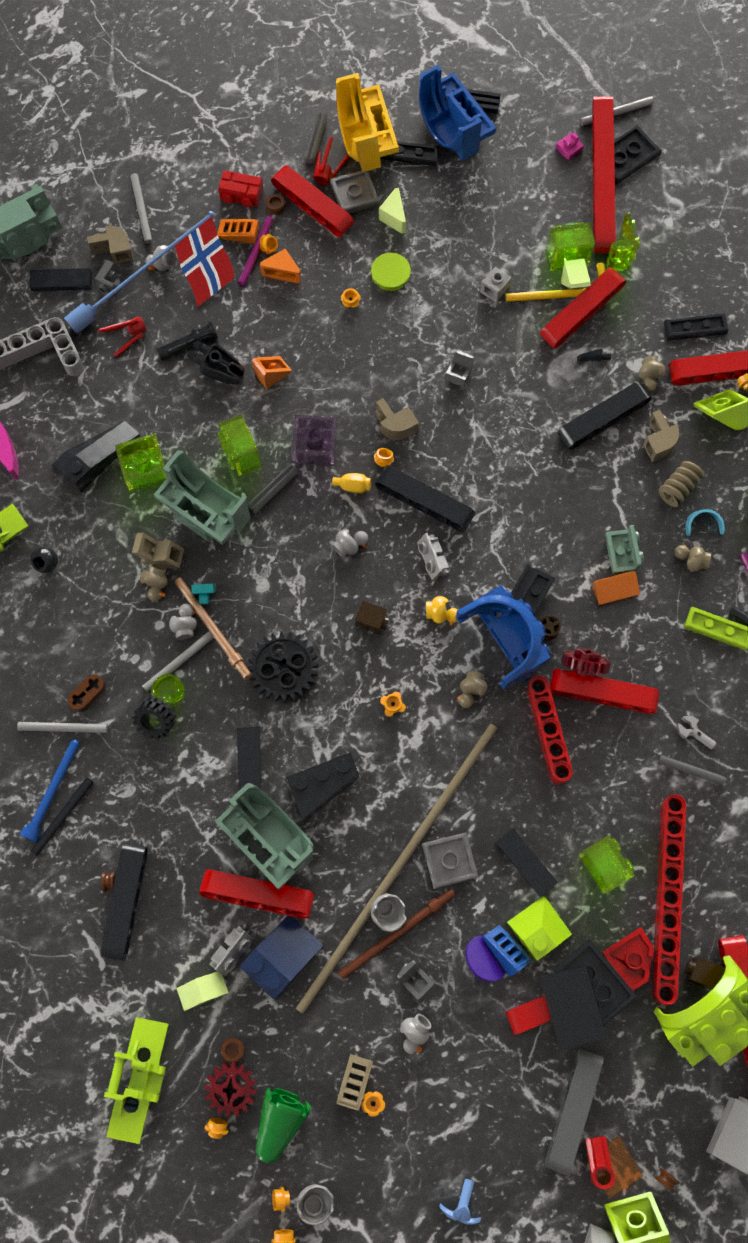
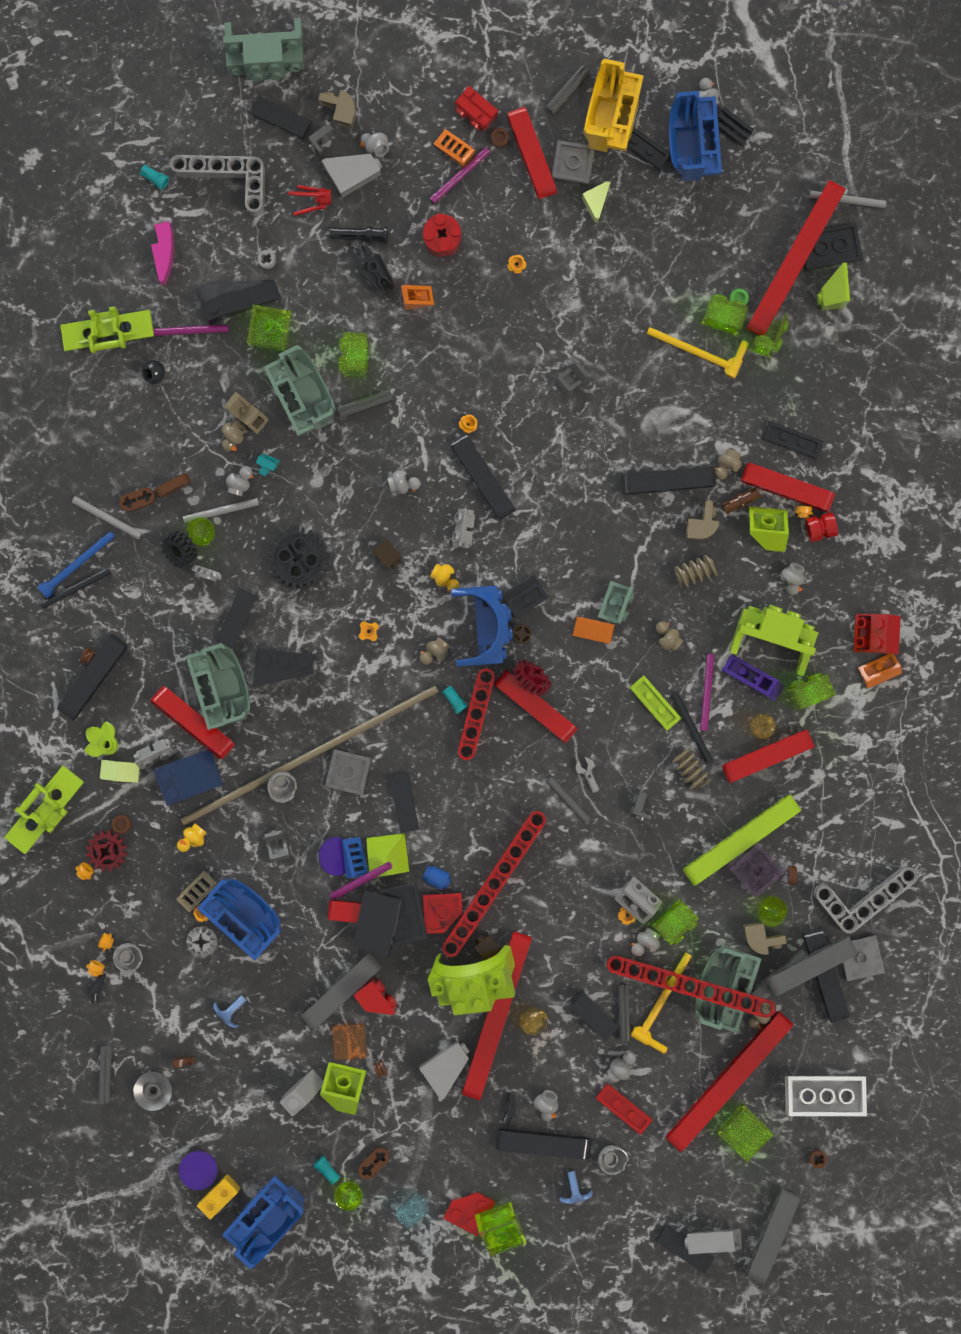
camera: 25 degrees right, 15 degrees up
(64, 505) = (191, 330): none -> magenta bar
(105, 402) = (266, 265): none -> light grey bush
(116, 660) = (173, 485): none -> reddish brown beam
(141, 208) = (381, 82): light grey bar -> none
(151, 292) = (352, 172): none -> light grey slope
(162, 966) = (98, 739): none -> lime plate
(194, 728) = (206, 573): none -> light grey gear
(200, 259) = (406, 164): flag -> none
(234, 658) = (264, 534): medium nougat bar -> none
(267, 304) = (438, 225): none -> red brick
(268, 243) = (473, 175): light orange plate -> none
(279, 1123) = (130, 890): green cone -> none
(281, 267) = (473, 204): orange slope -> none
(314, 440) = (418, 381): clear purple brick -> none
(320, 1022) = (193, 836): none -> yellow animal
(323, 171) = (555, 128): red plant -> none
(353, 483) = (432, 433): yellow plant -> none
(386, 1151) = (208, 935): none -> light grey gear
(390, 271) = (564, 255): lime tile -> none
(397, 425) = (494, 402): dark tan brick -> none
(416, 1031) = (258, 879): light grey animal -> none
(422, 1081) = (242, 916): none -> blue piece
(433, 906) = (318, 799): copper bar -> none
(496, 283) = (643, 320): light grey brick -> none
(523, 729) = (454, 699): none -> teal pin
(529, 969) = (361, 880): none -> magenta bar
(569, 146) = (785, 213): dark pink tile -> none
(575, 274) = (712, 346): yellowish green slope -> none
(582, 308) = (704, 376): red beam -> none
(595, 355) = (692, 423): black bar -> none
(599, 1159) = (340, 1030): red piece -> none
(606, 924) = (436, 877): none -> blue brick
(607, 864) = (459, 836): clear neon green brick -> none
(617, 1099) = (375, 999): none -> red slope
(657, 180) = (836, 291): none -> lime slope
(683, 399) = (741, 500): none -> reddish brown pin
(719, 519) = (696, 602): medium azure helmet -> none

